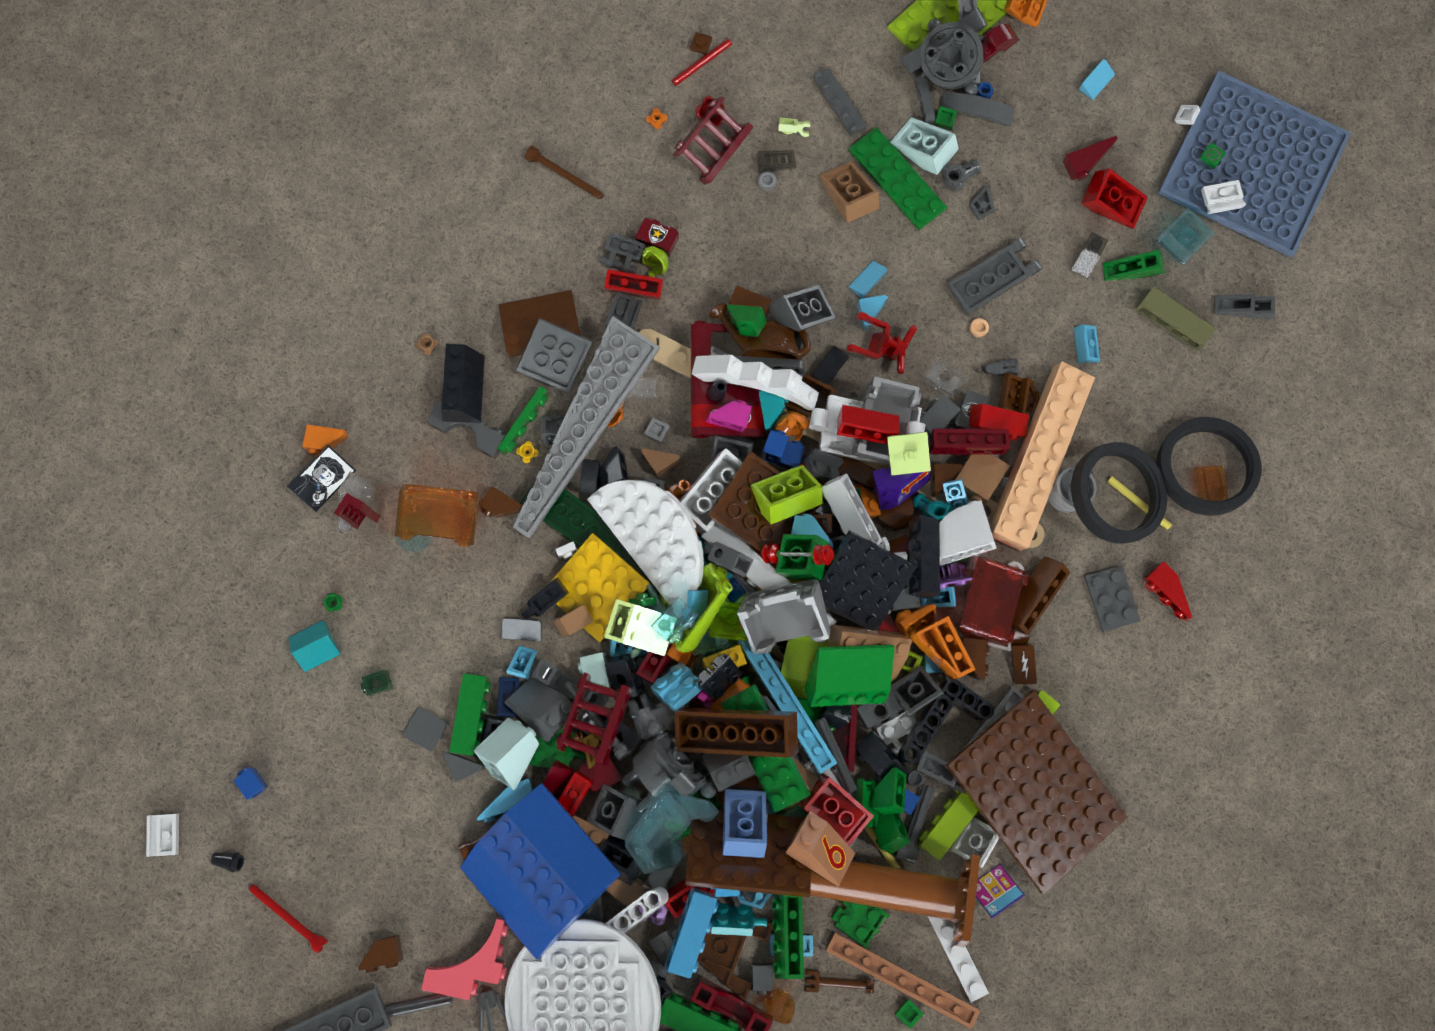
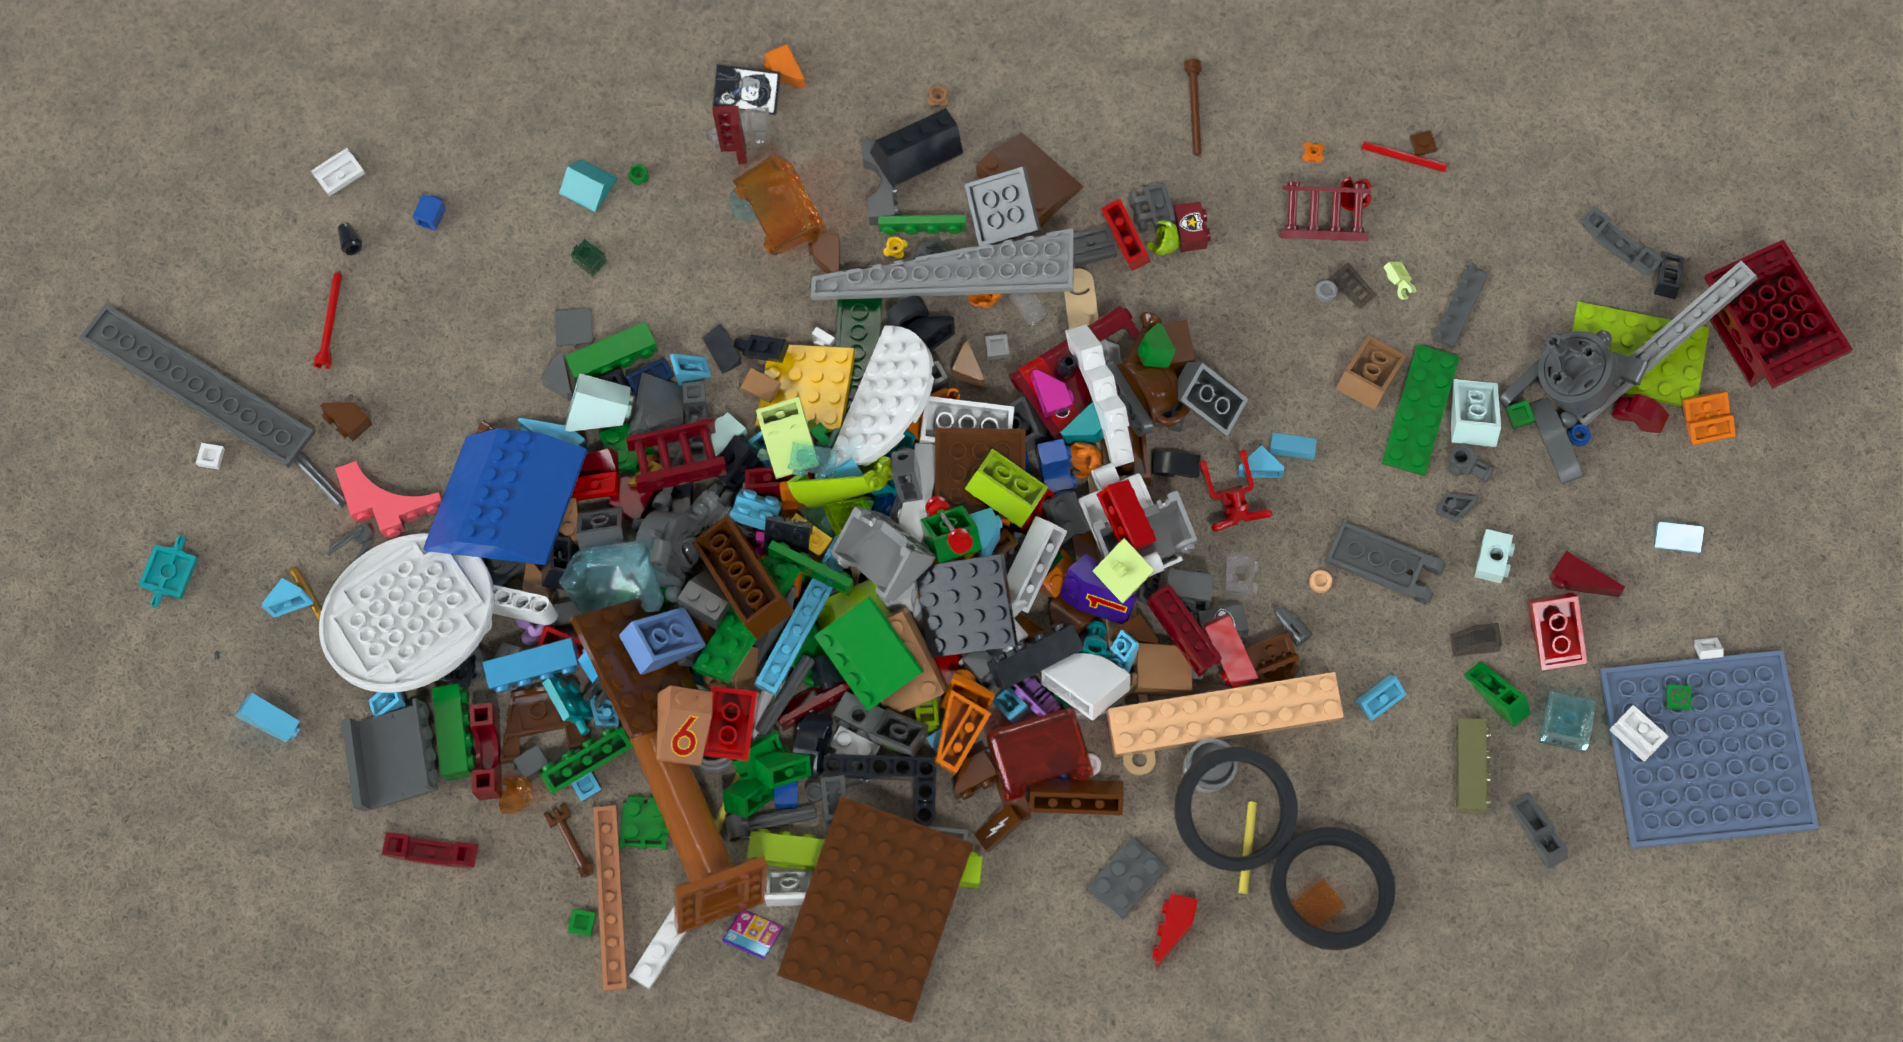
camera: 65 degrees right, 10 degrees down
(763, 670) = (819, 571): none -> green plate
(1037, 213) = (1499, 544): none -> light aqua brick

